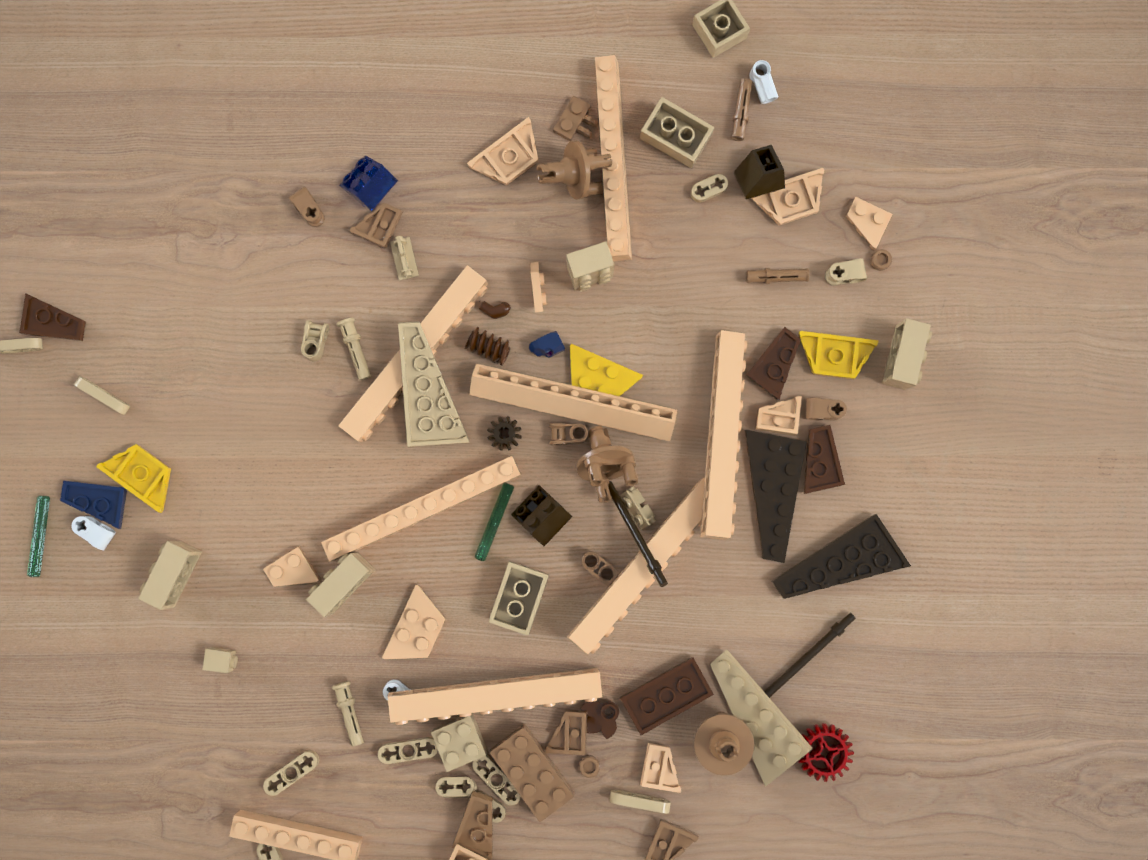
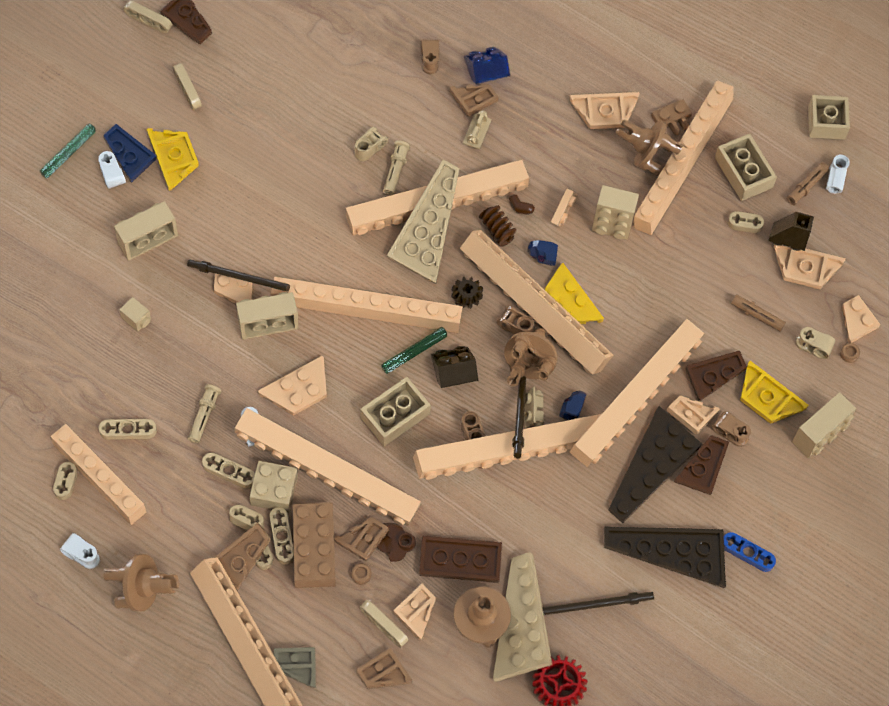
camera: 25 degrees right, 20 degrees down
(251, 568) = (206, 267): none -> dark brown bar
(671, 481) = (573, 405): none -> dark blue rock
(923, 511) = (750, 560): none -> blue beam

